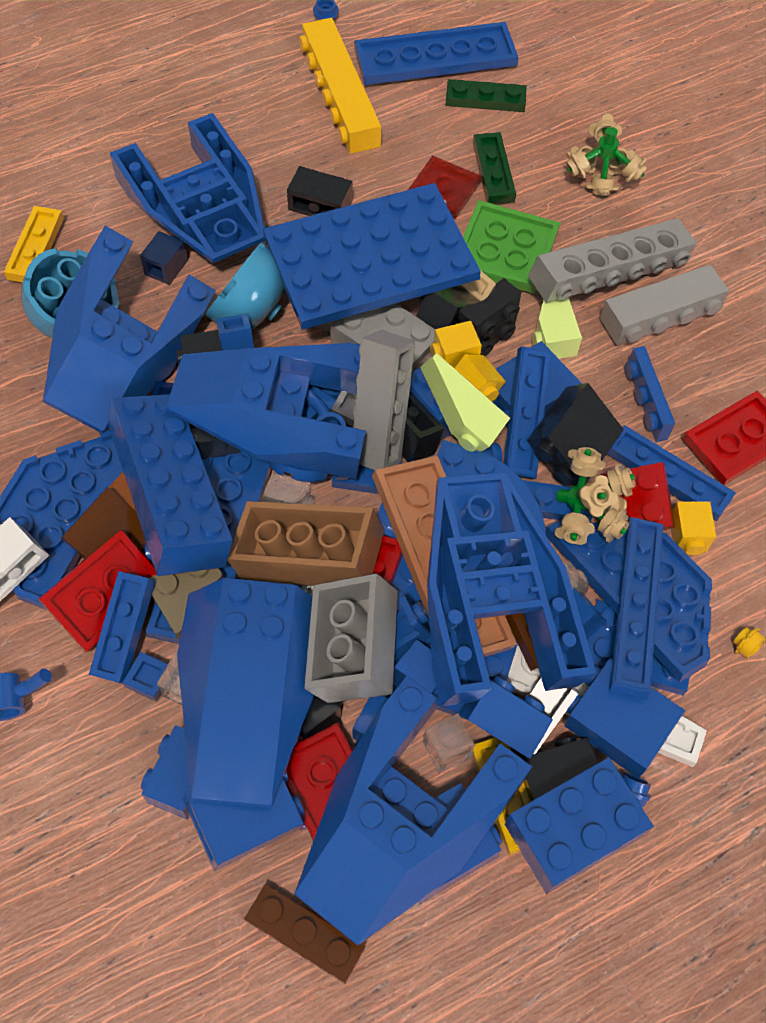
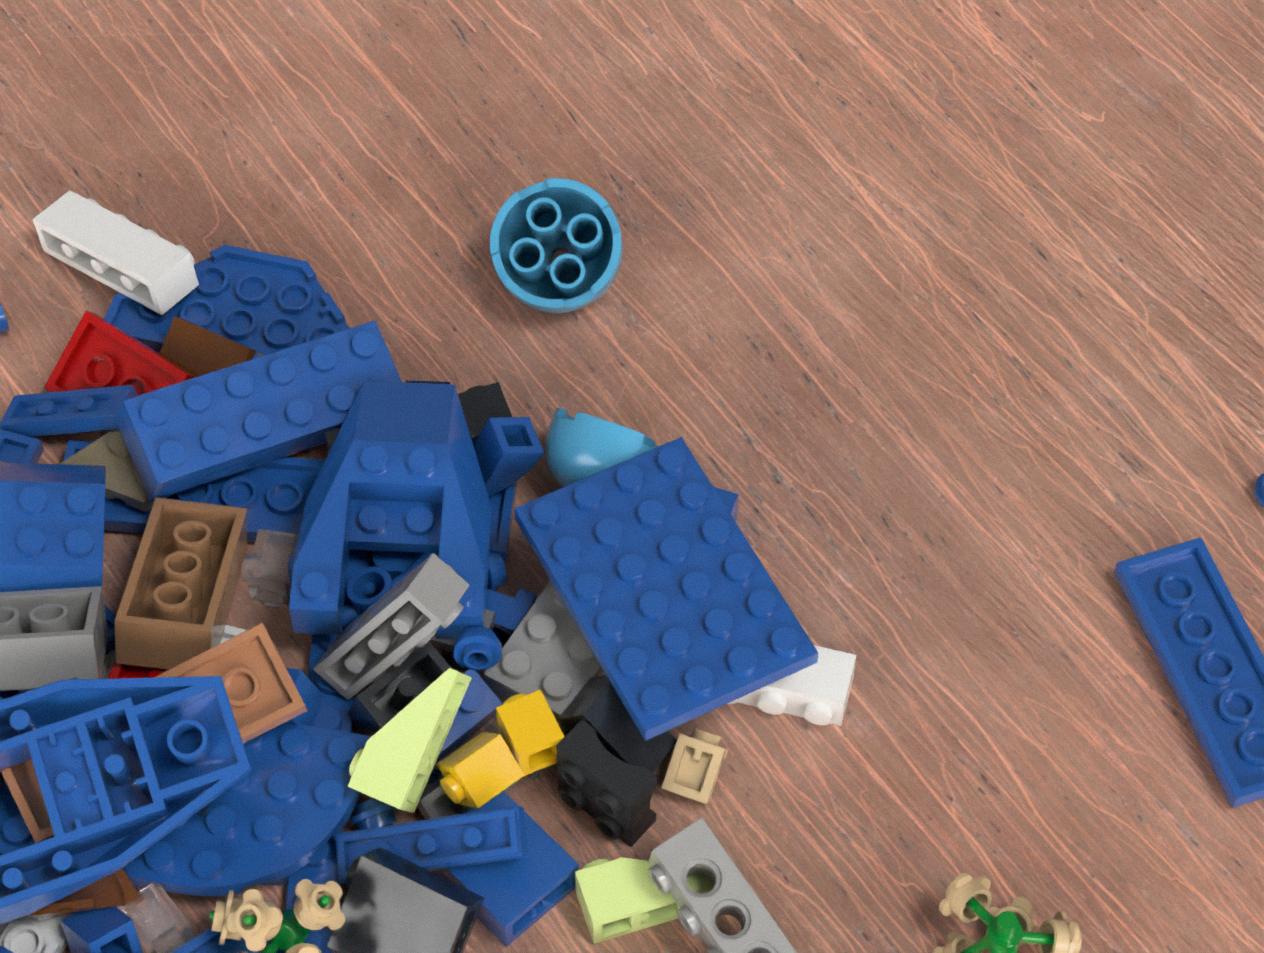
camera: 85 degrees right, 5 degrees down
(35, 238) = (672, 198): yellow plate -> none
(104, 351) = (473, 307): blue wedge -> none
(164, 257) = (674, 354): dark blue brick -> none
(205, 206) = (770, 380): blue wedge -> none
(318, 192) = (838, 535): black brick -> none
(340, 86) = (1092, 531): yellow brick -> none
(452, 181) = (908, 716): clear red tile -> none
(486, 95) = (1140, 763): dark green plate -> none
(494, 168) = (960, 783): dark green plate -> none
(508, 242) = (791, 813): bright green plate -> none

